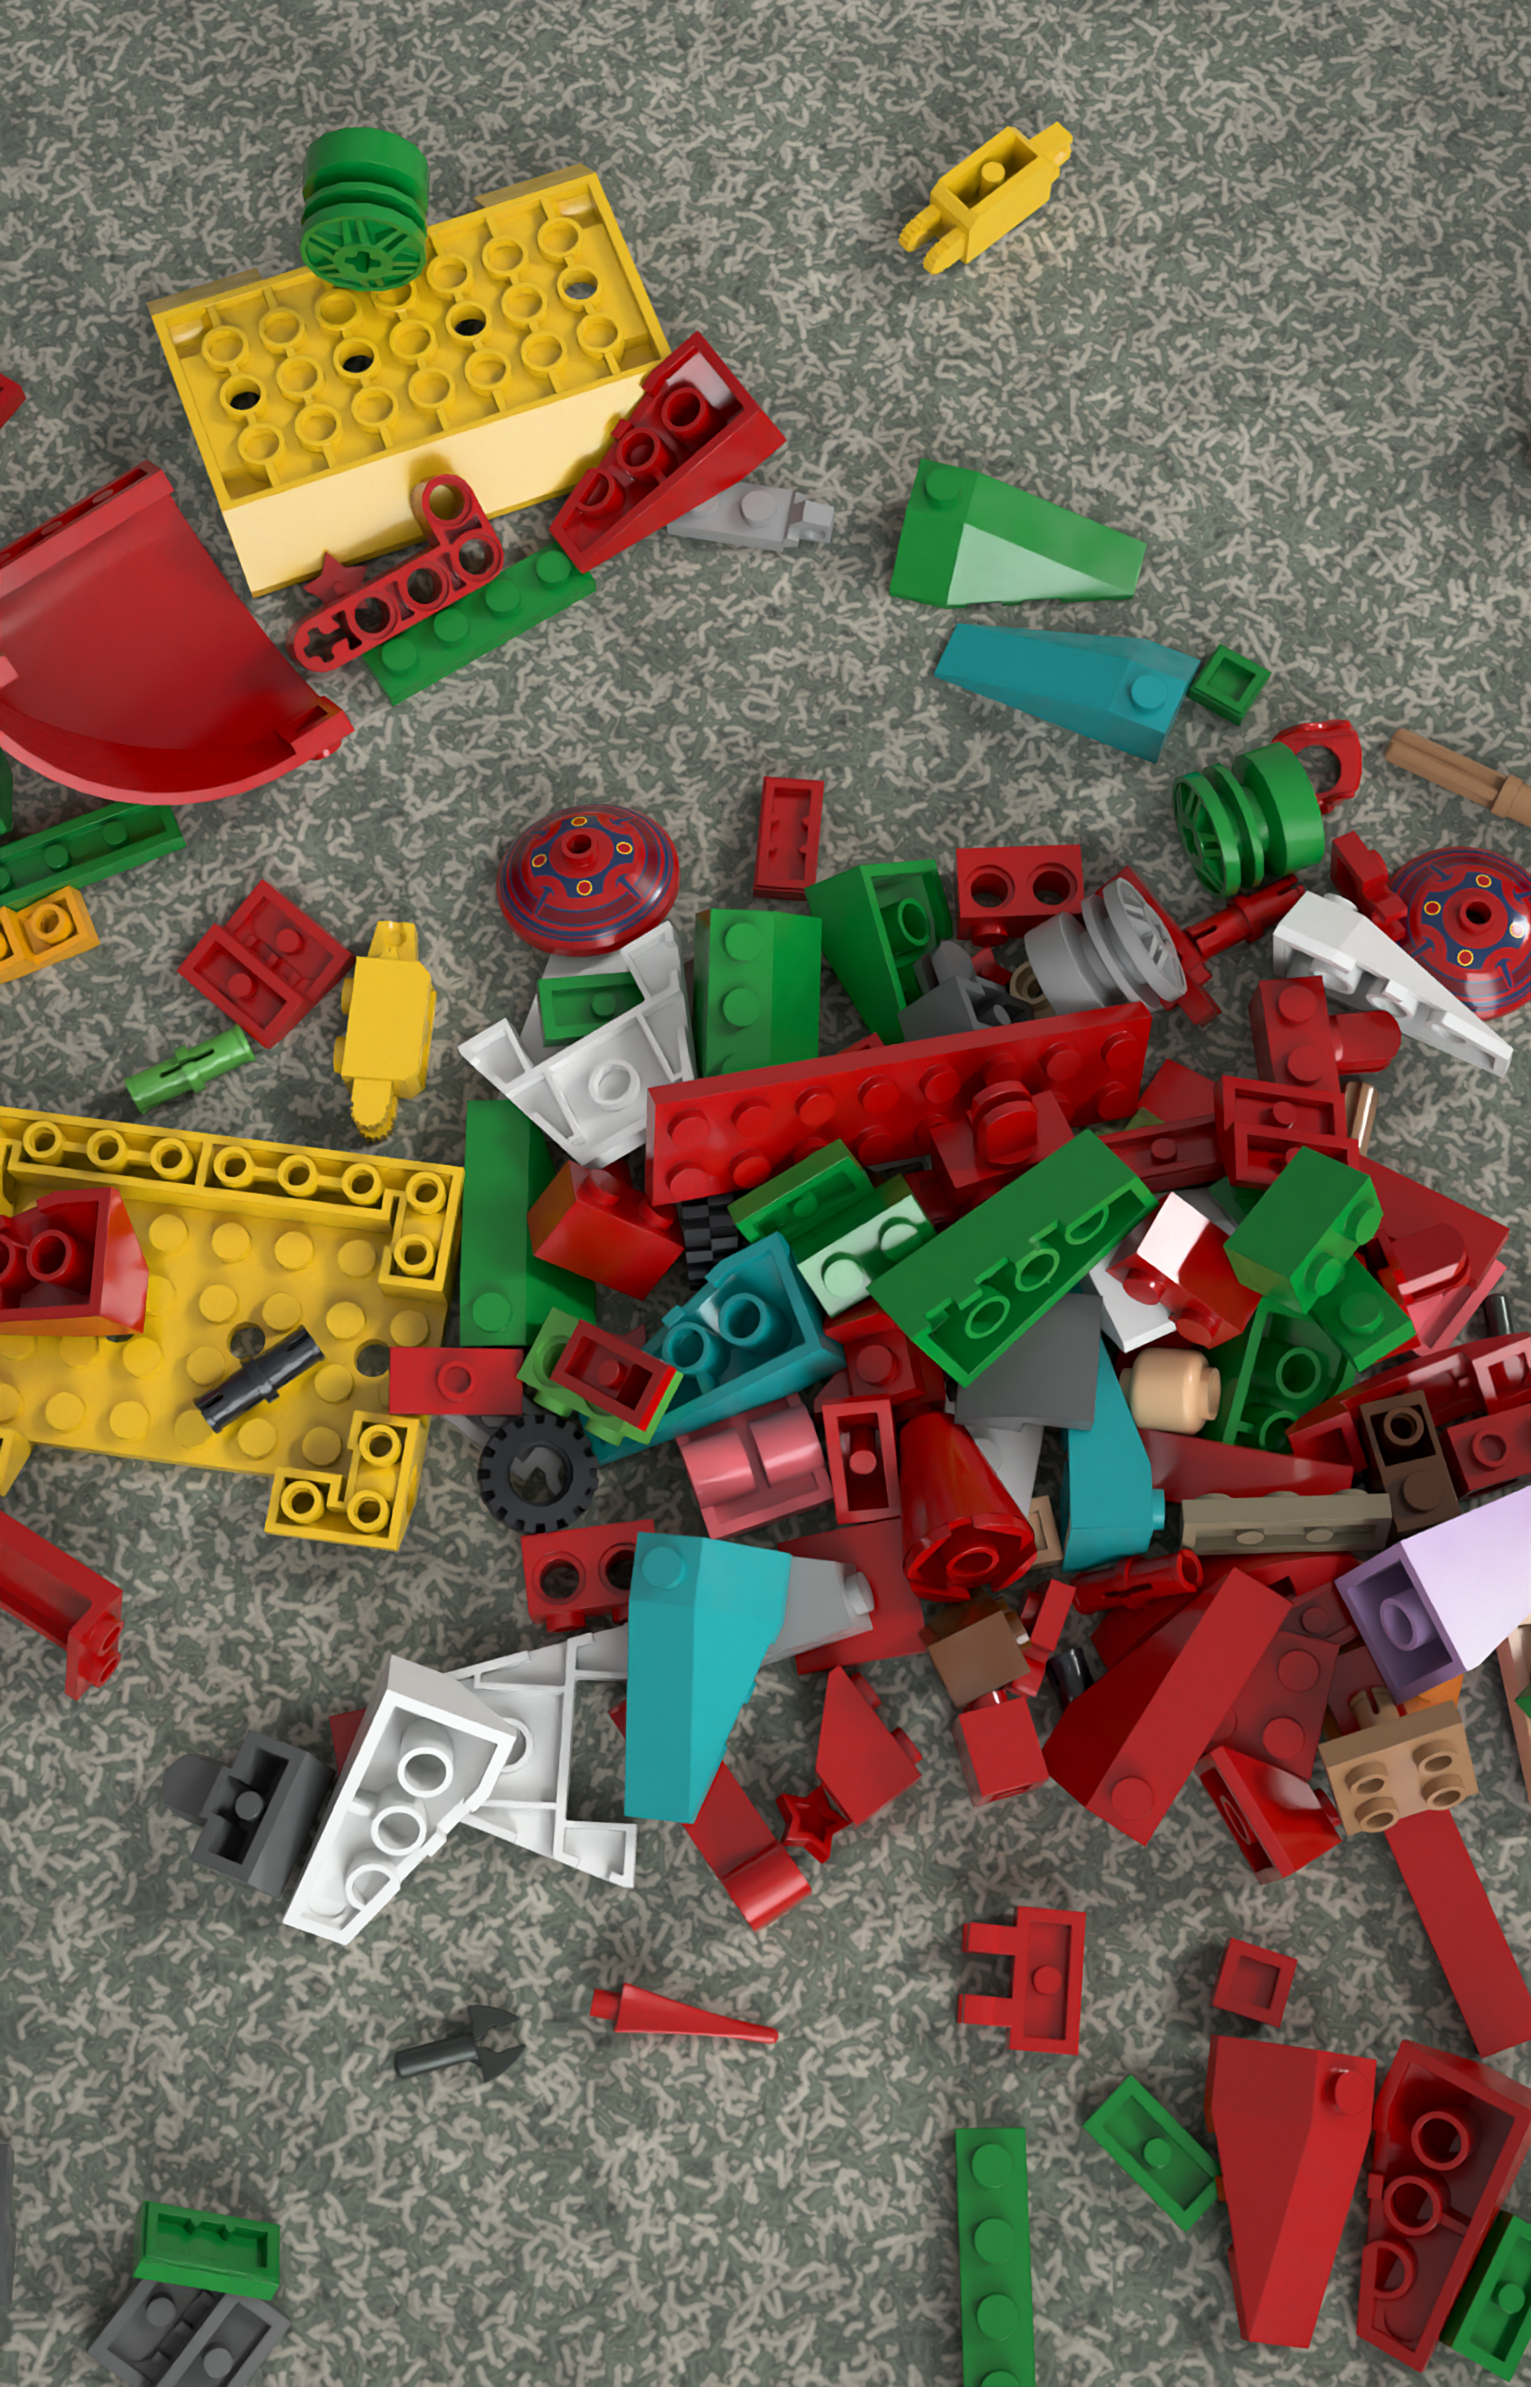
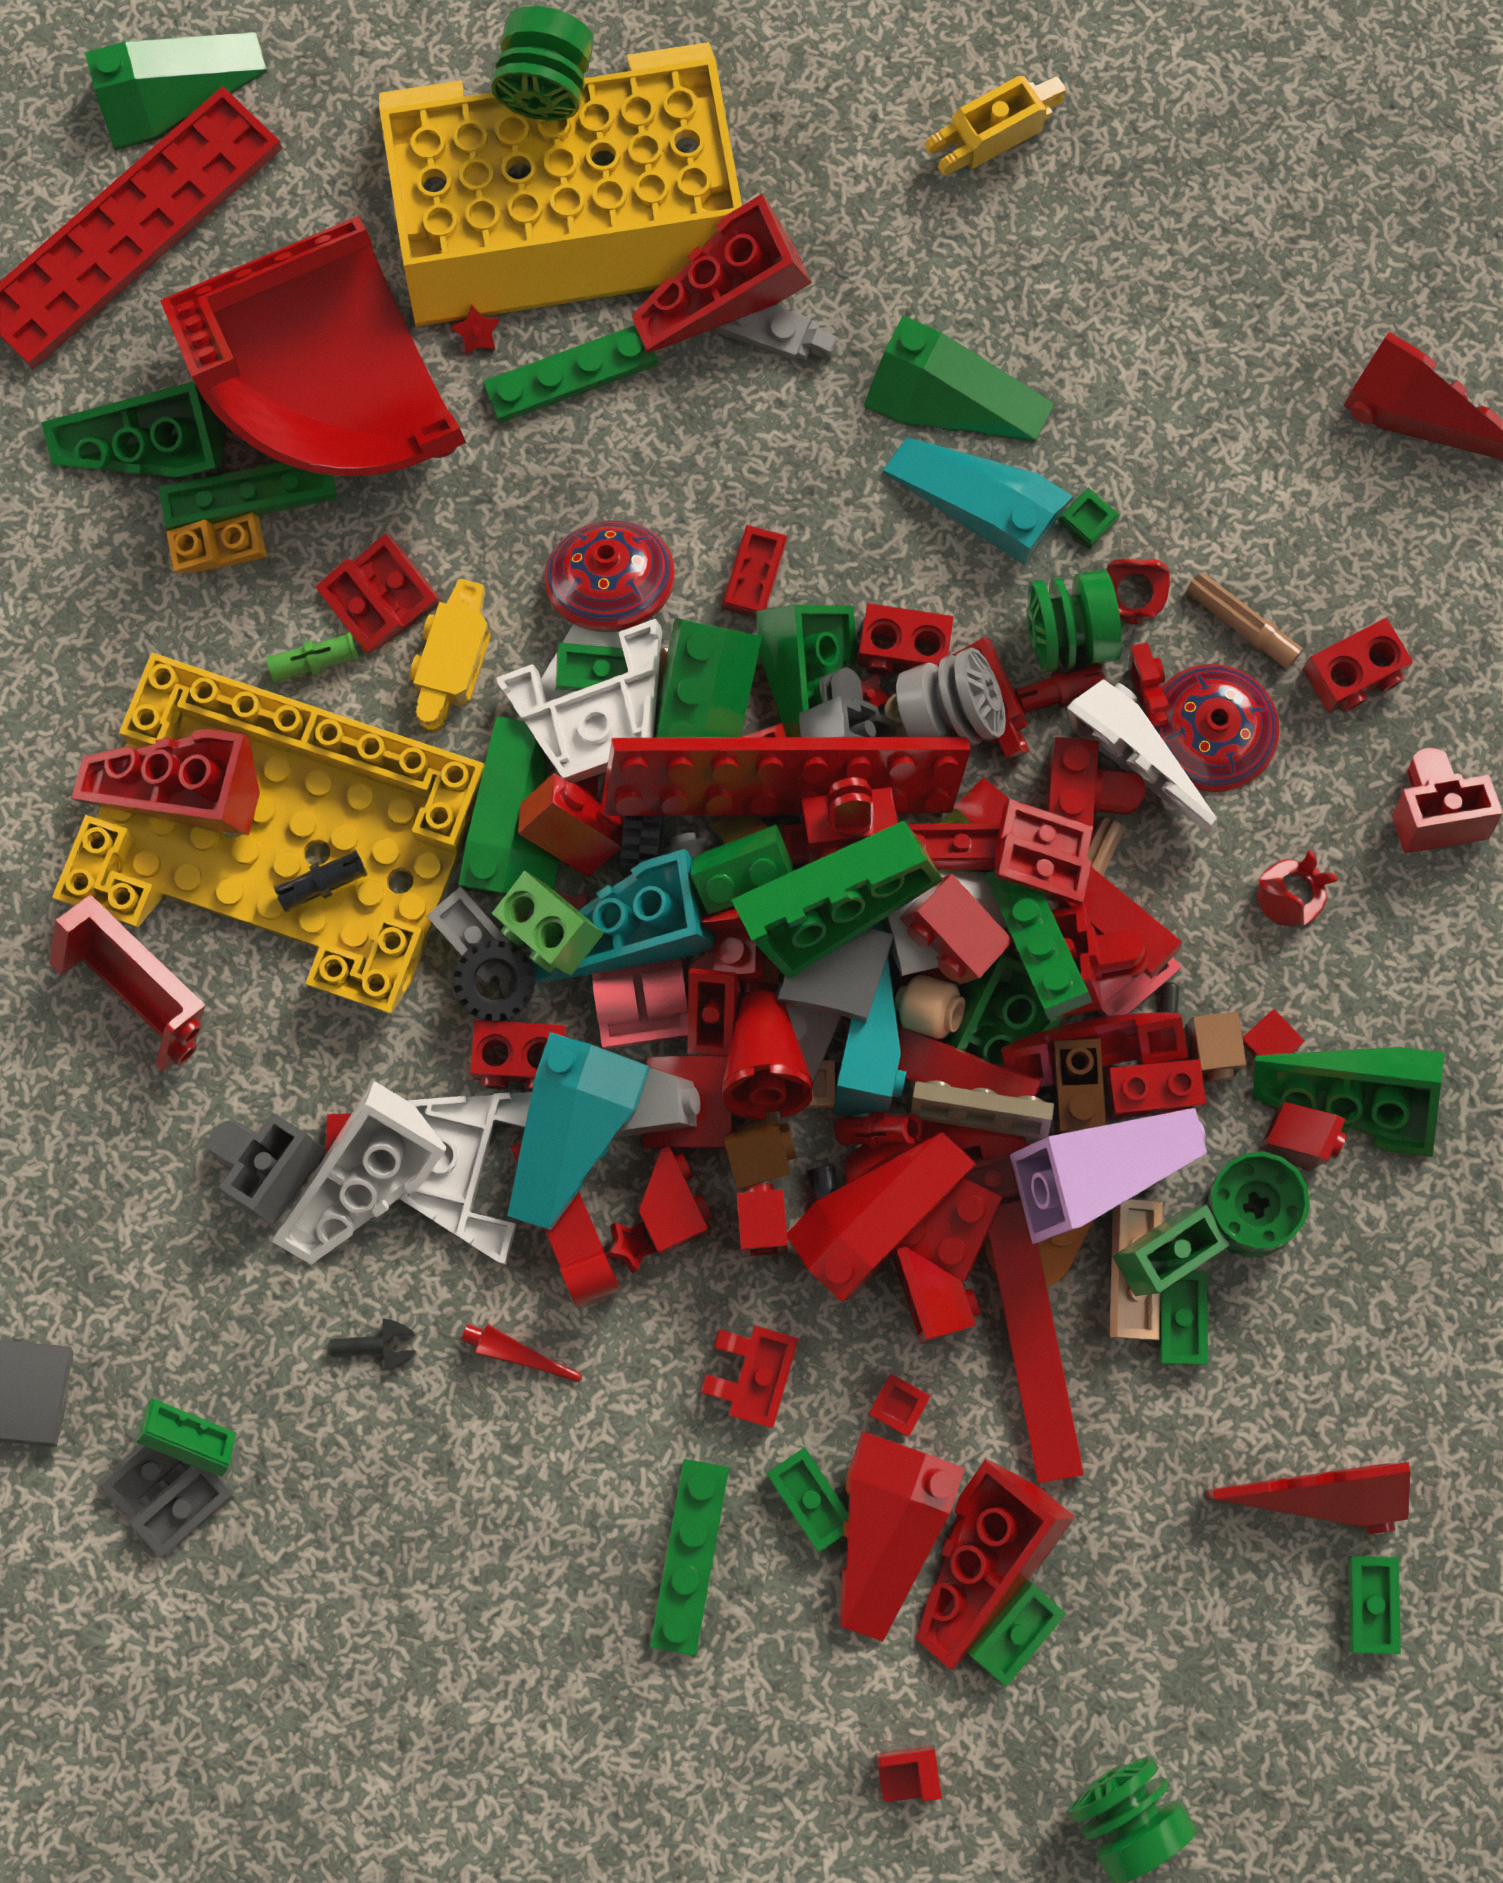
camera: 10 degrees right, 5 degrees up
(390, 586) = (511, 338): red beam -> none
(455, 1381) = (450, 908): red plate -> none
(613, 1374) = (553, 925): red slope -> none
(802, 1195) = (706, 827): green plate -> none
(1043, 1619) = (810, 1143): red plate -> none
(1304, 1230) = (1033, 917): green brick -> none
(1397, 1763) = (1019, 1281): medium nougat plate -> none

